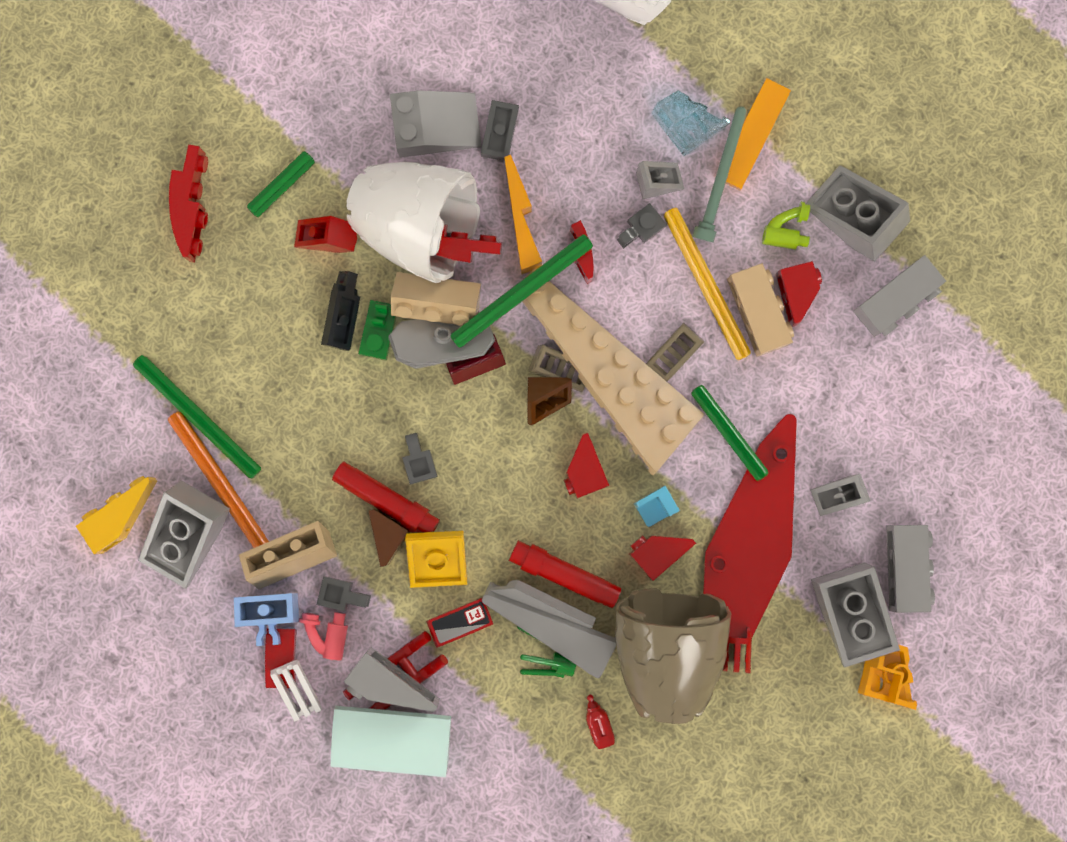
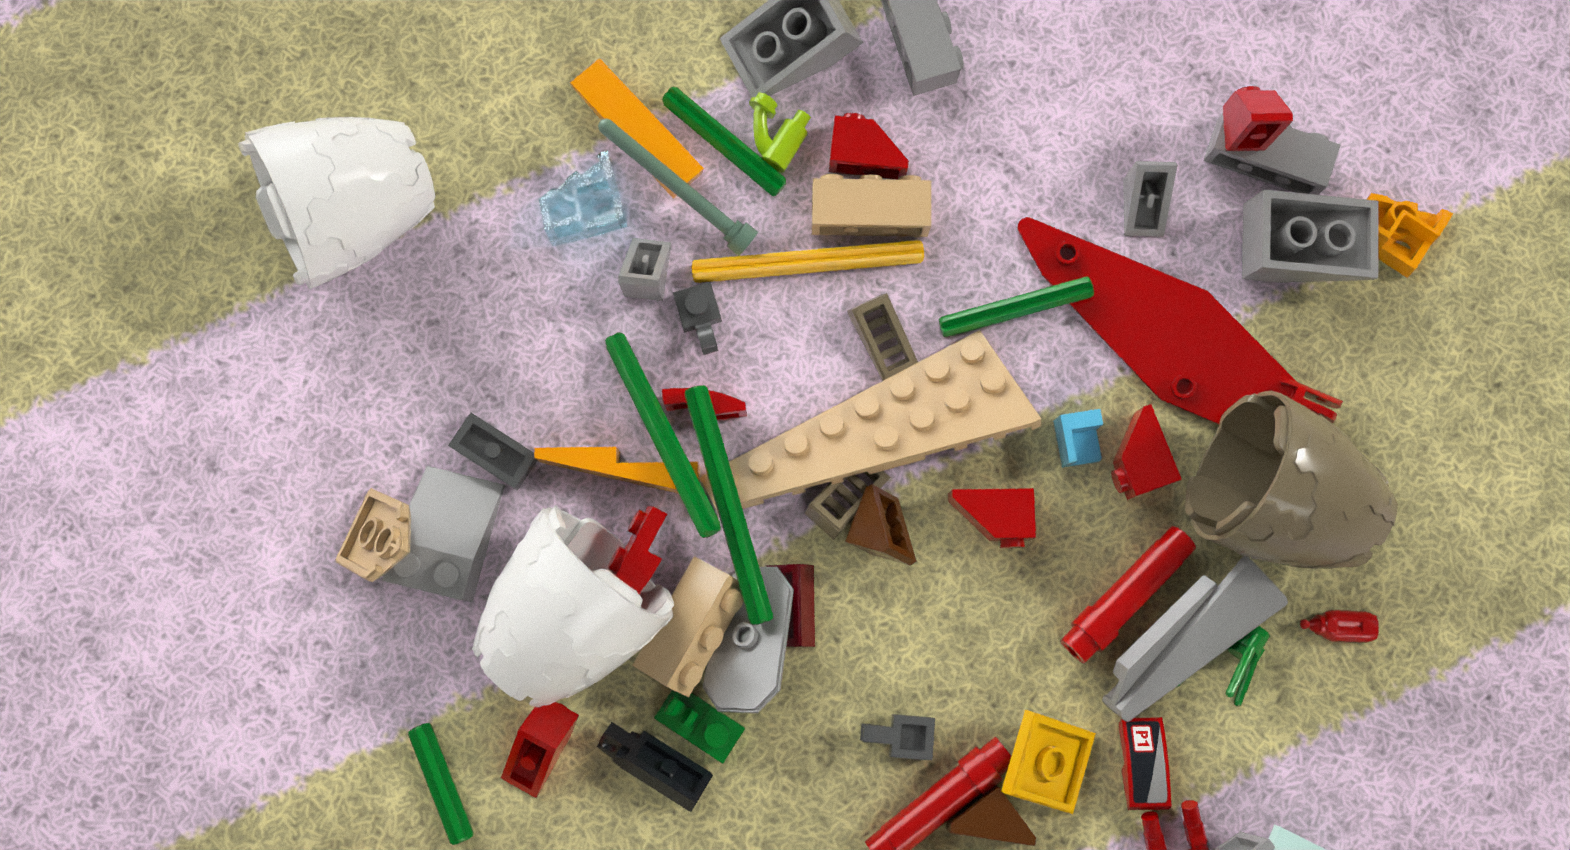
camera: 70 degrees left, 5 degrees down
(416, 79) = (377, 536): none -> tan tile
(550, 231) = (663, 436): none -> green axle
(768, 196) = (724, 141): none -> green axle
(921, 542) = (1254, 119): none -> red slope

